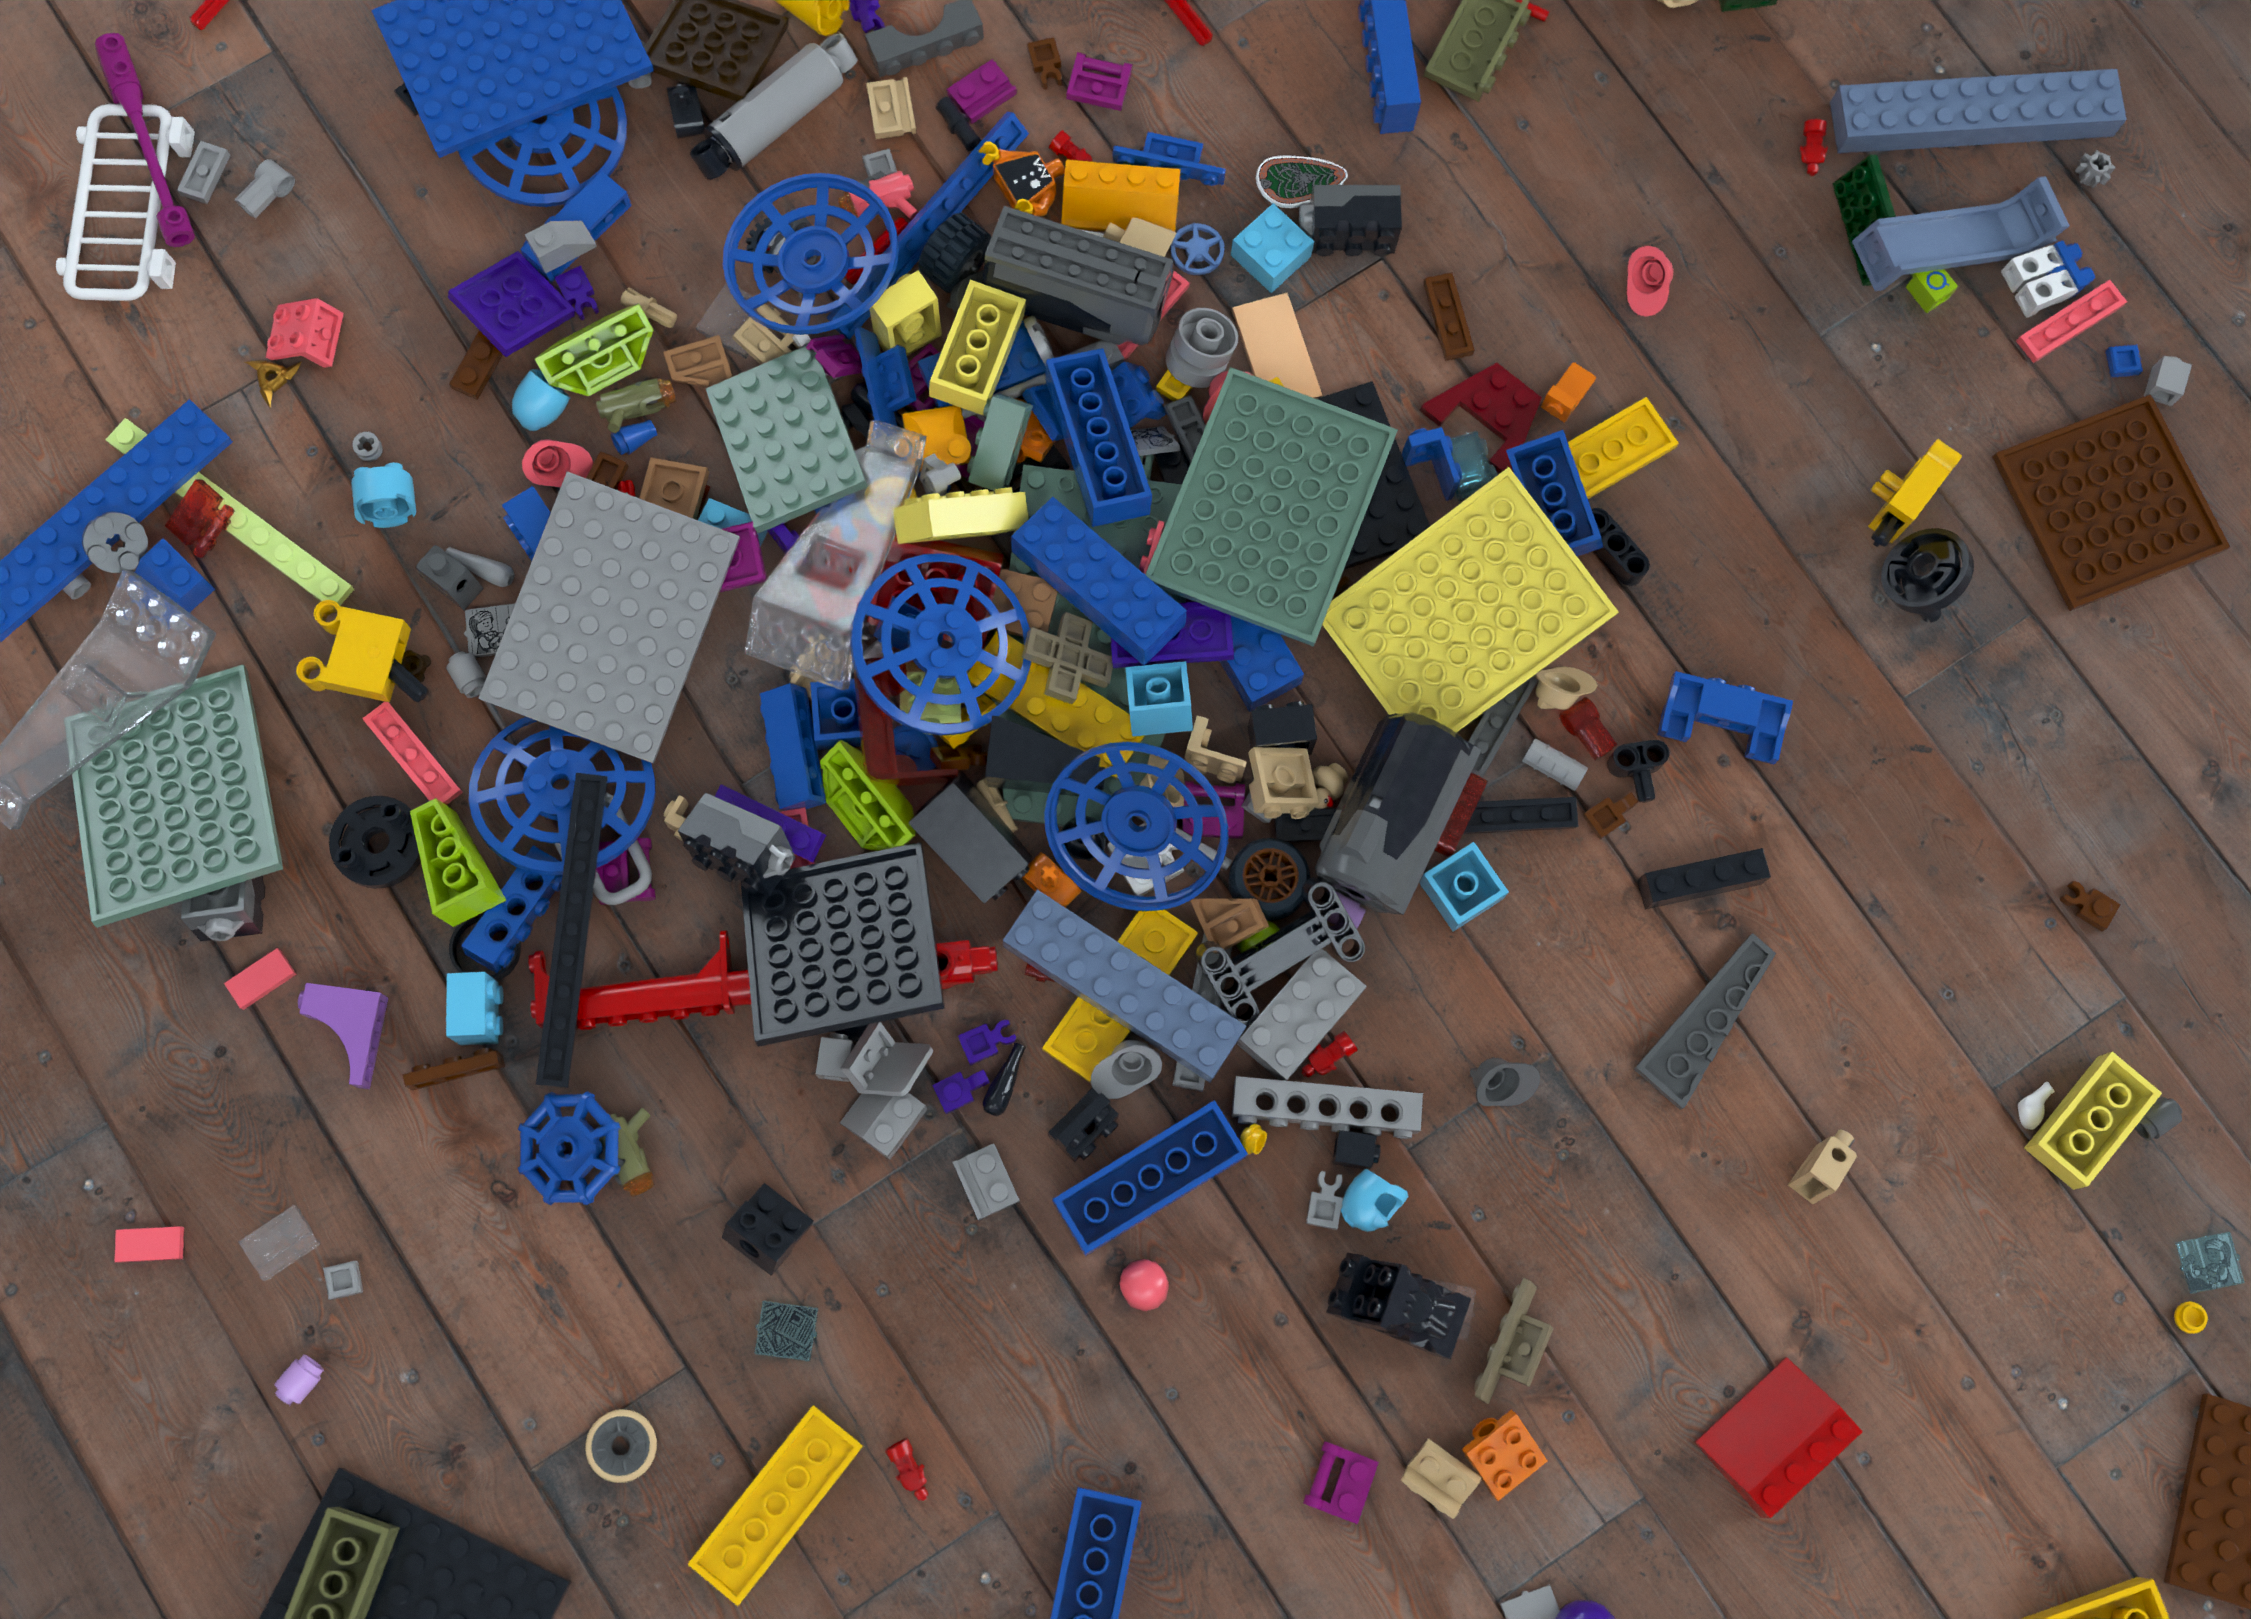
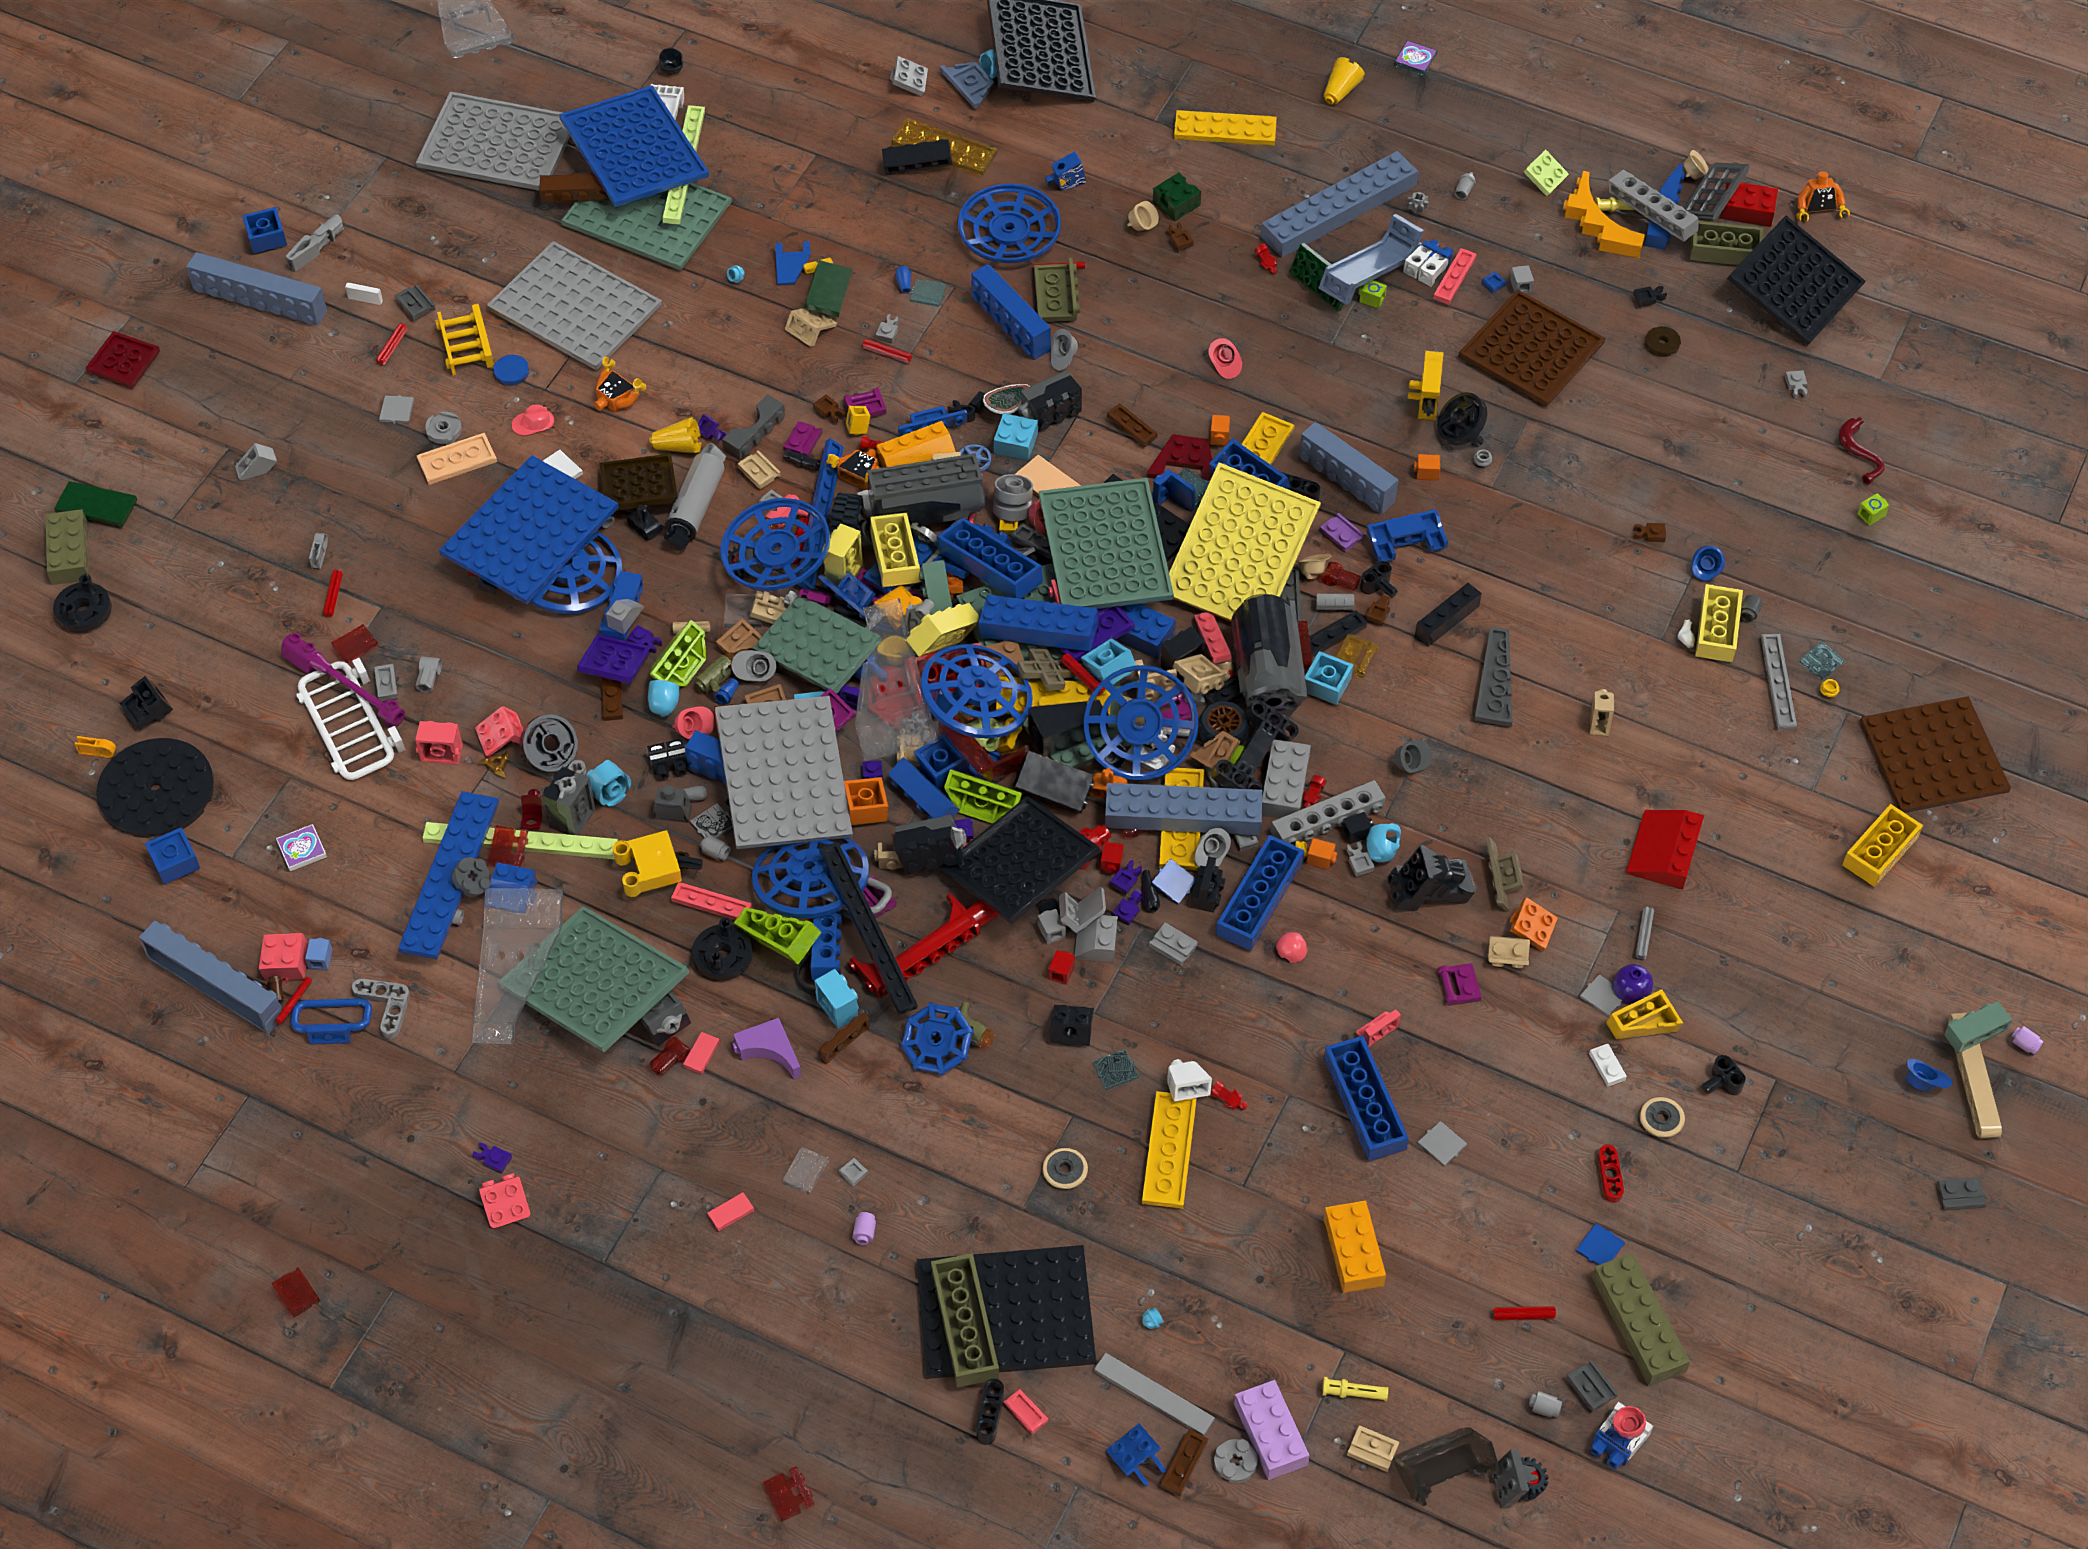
camera: 25 degrees left, 20 degrees down
(200, 90) = (354, 643): none -> clear red plate
(205, 307) = (439, 742): none -> coral brick
(221, 959) = (673, 1052): none -> clear red piece
(268, 477) = (531, 809): none -> dark red bracket
(305, 500) = (569, 801): none -> piece
(367, 383) = (536, 753): none -> piece
(485, 496) = (662, 764): none -> black hips
(687, 419) = (753, 665): none -> light grey piece
(704, 718) = (866, 801): none -> orange brick
(749, 674) = (872, 769): none -> dark purple plate
(809, 1131) = (1061, 967): none -> red brick
(862, 1416) = (1187, 1080): none -> white torso
(984, 1000) = (1112, 857): none -> red brick
(1046, 1086) = (1174, 881): none -> piece
(1069, 103) = (857, 420): none -> yellow brick
(1112, 695) = (1081, 673): none -> red axle
(1180, 1486) = (1379, 1027): none -> coral bracket
(1238, 169) = (972, 408): none -> black bar
(1277, 1163) = (1321, 854): none -> orange brick
(1341, 729) = (1213, 637): none -> coral plate
(1427, 142) = (1062, 349): none -> light grey piece
(1523, 860) = (1351, 650): none -> clear yellow plate
(1638, 655) = (1341, 532): none -> medium lavender plate
(1657, 1559) = (1644, 933): none -> light grey axle
(1708, 560) = (1348, 468): none -> sand blue brick
(1709, 45) = (1180, 238): none -> reddish brown plate
(1828, 618) = (1427, 467): none -> orange brick
(1927, 643) = (1483, 458): none -> light grey plate
(2121, 1261) = (1778, 682): none -> light grey tile
(2141, 1008) = (1707, 563): none -> blue hat
(2187, 174) = (1465, 185): none -> light grey piece

